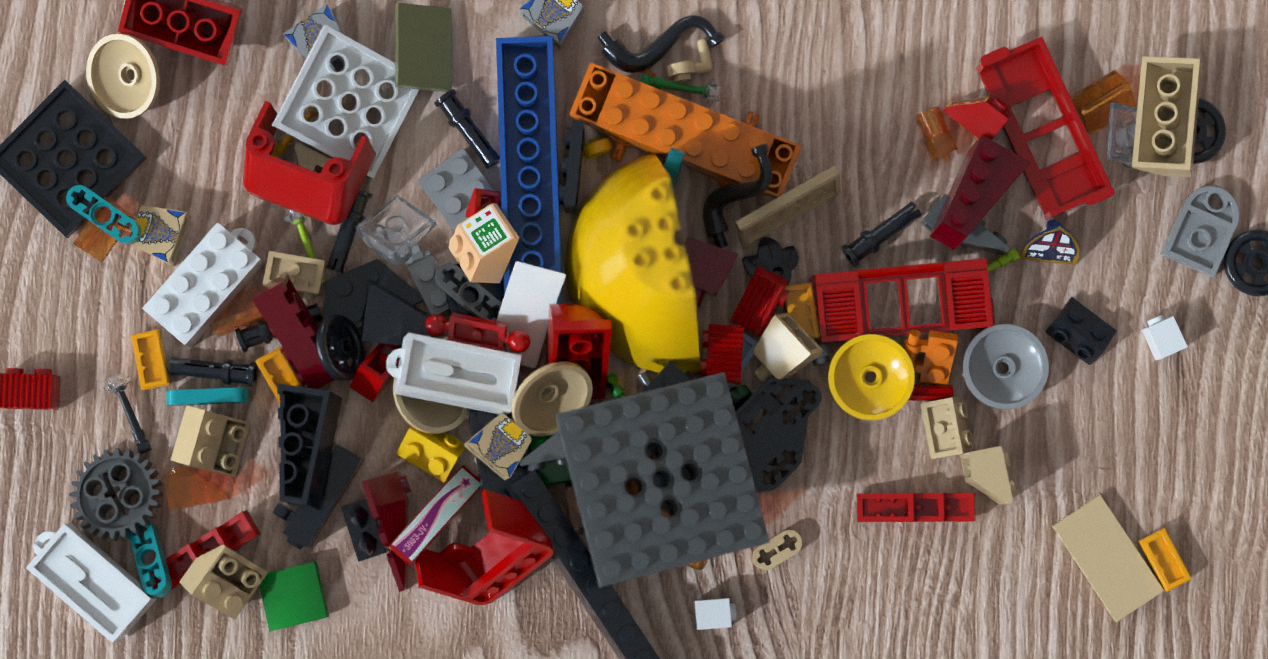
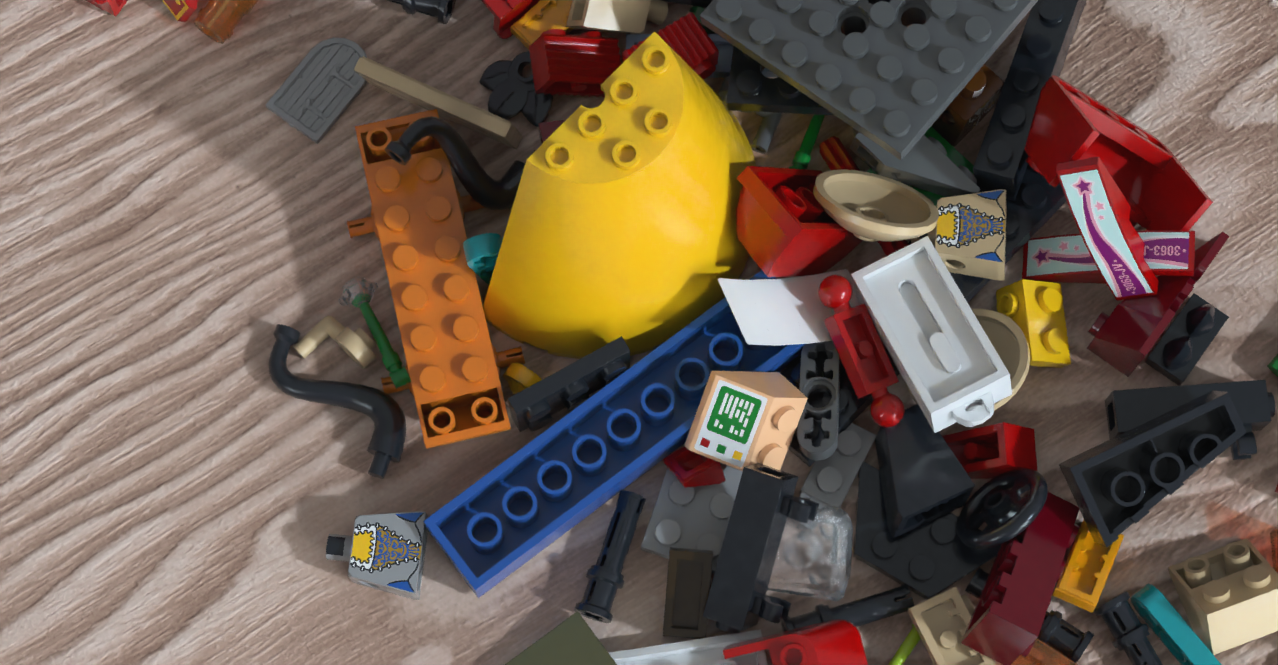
camera: 125 degrees left, 10 degrees down
(415, 198) = (751, 549): none -> black brick
(419, 154) = (687, 592): none -> dark brown tile
(443, 508) = (1105, 227): none -> slope
(852, 154) = (320, 88): none -> light grey window

